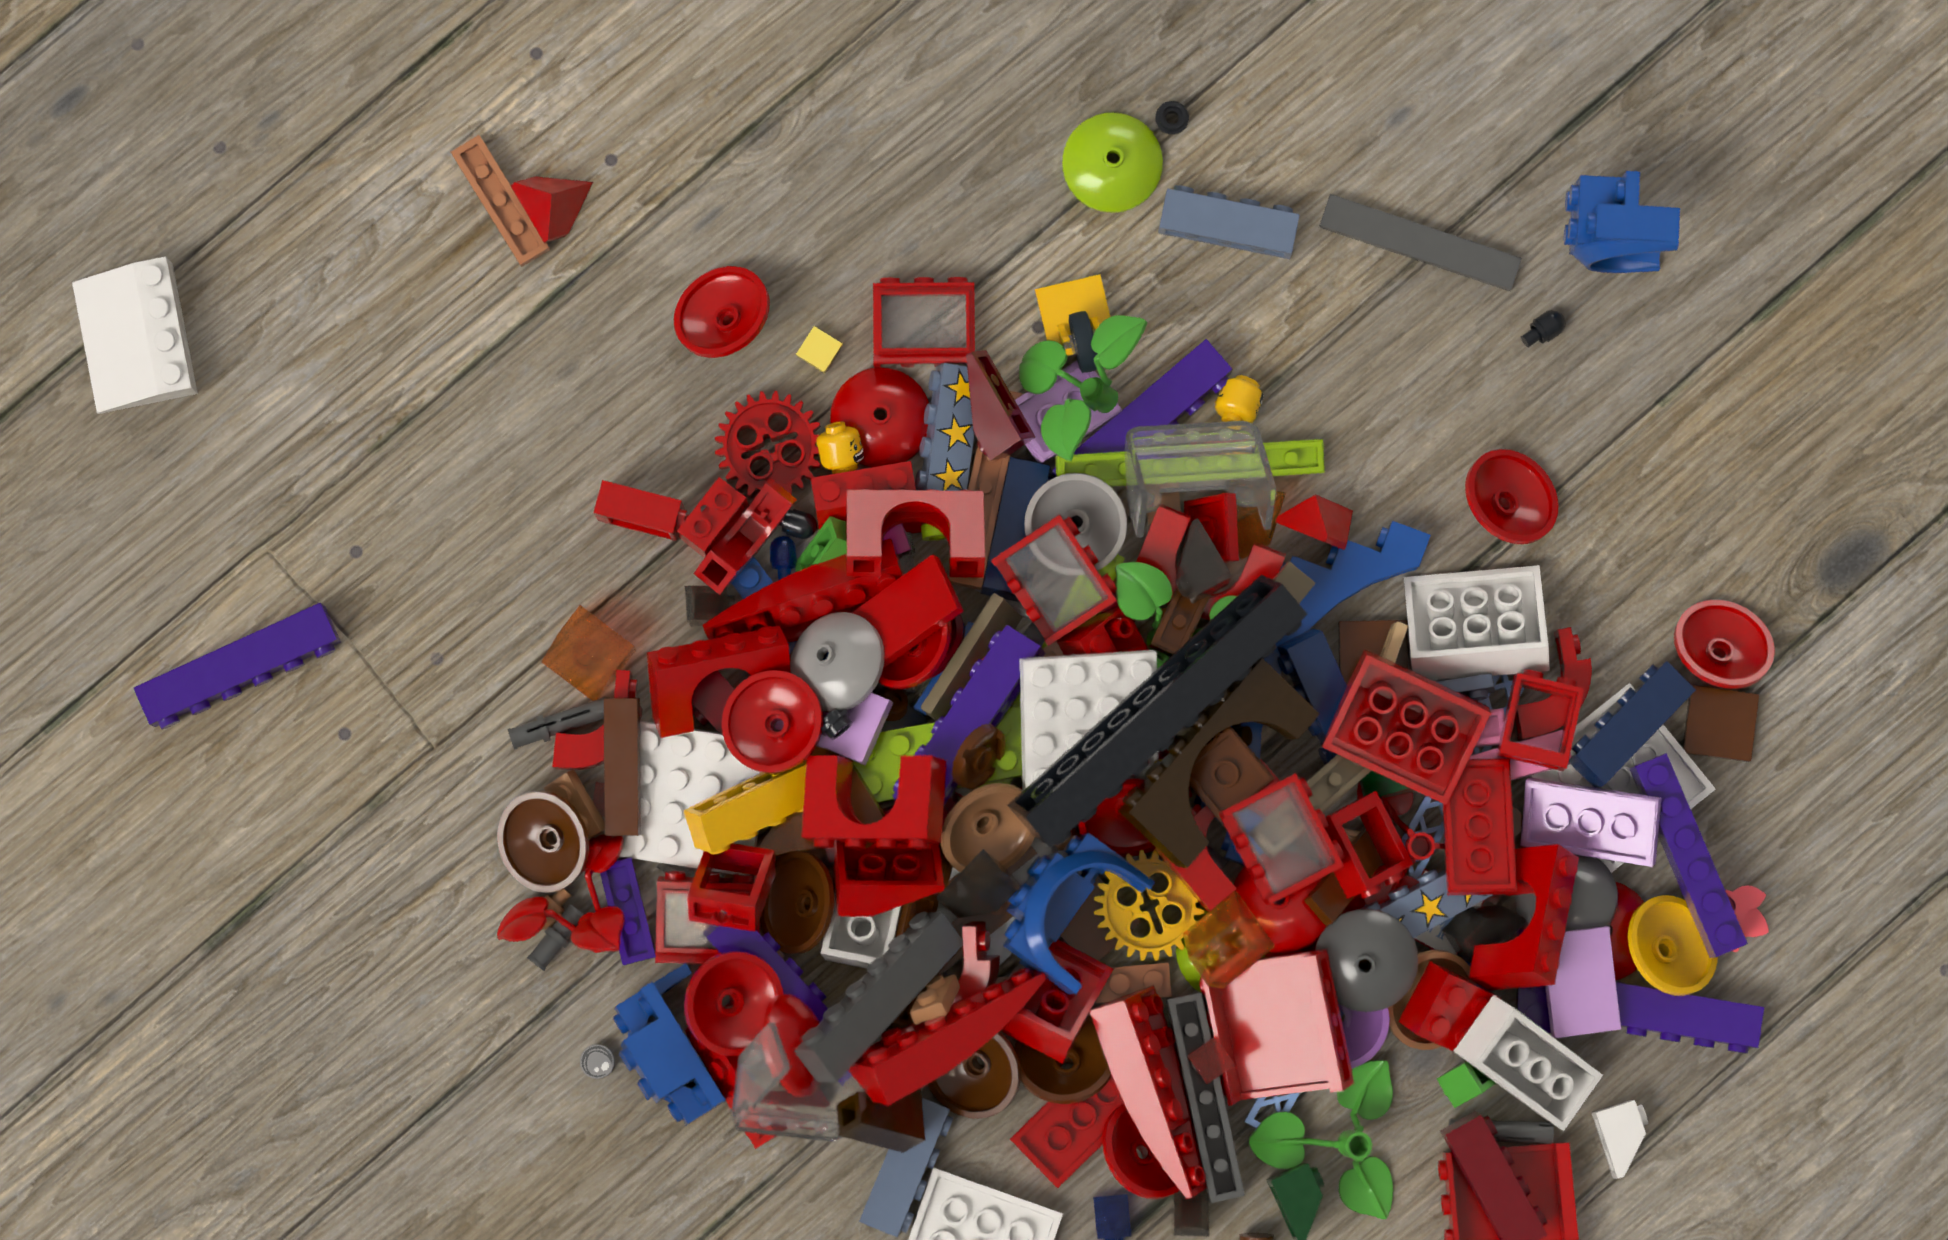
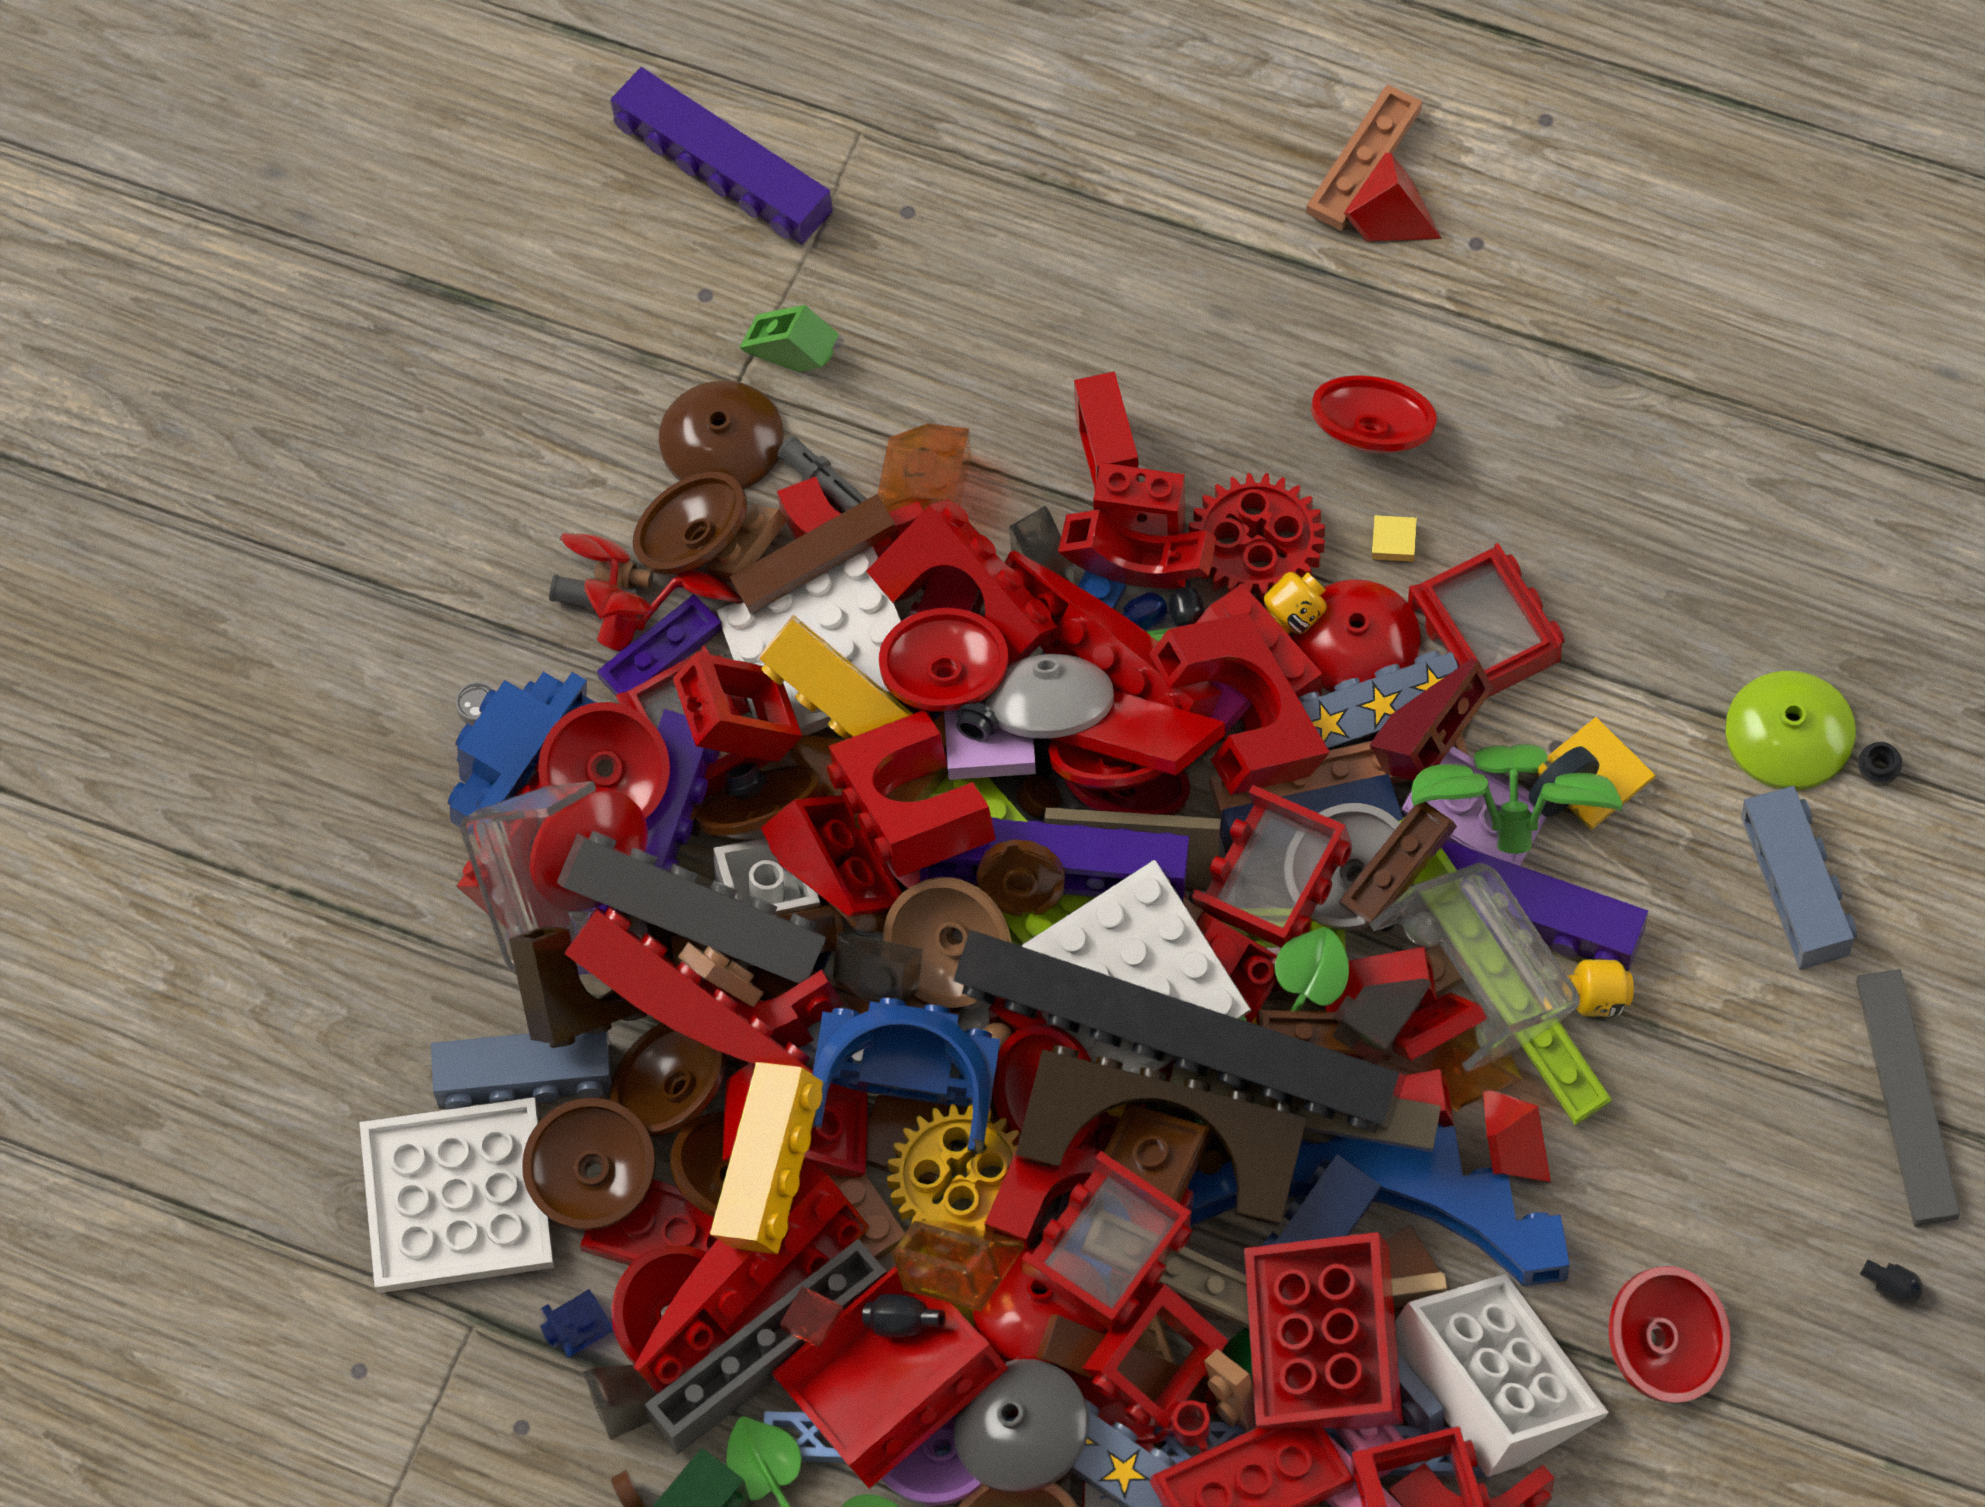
camera: 70 degrees right, 20 degrees down
(423, 693) = (791, 338): none -> bright green slope
(496, 784) = (740, 447): none -> reddish brown dish
(777, 905) = (744, 781): none -> black plate
(1025, 1174) = (573, 1140): none -> reddish brown dish
(1098, 1036) = (767, 1158): none -> yellow brick
(1100, 493) = (1398, 862): none -> reddish brown tile
(1242, 999) = (900, 1316): none -> black plant
(1408, 807) = (1232, 1391): none -> medium nougat plate

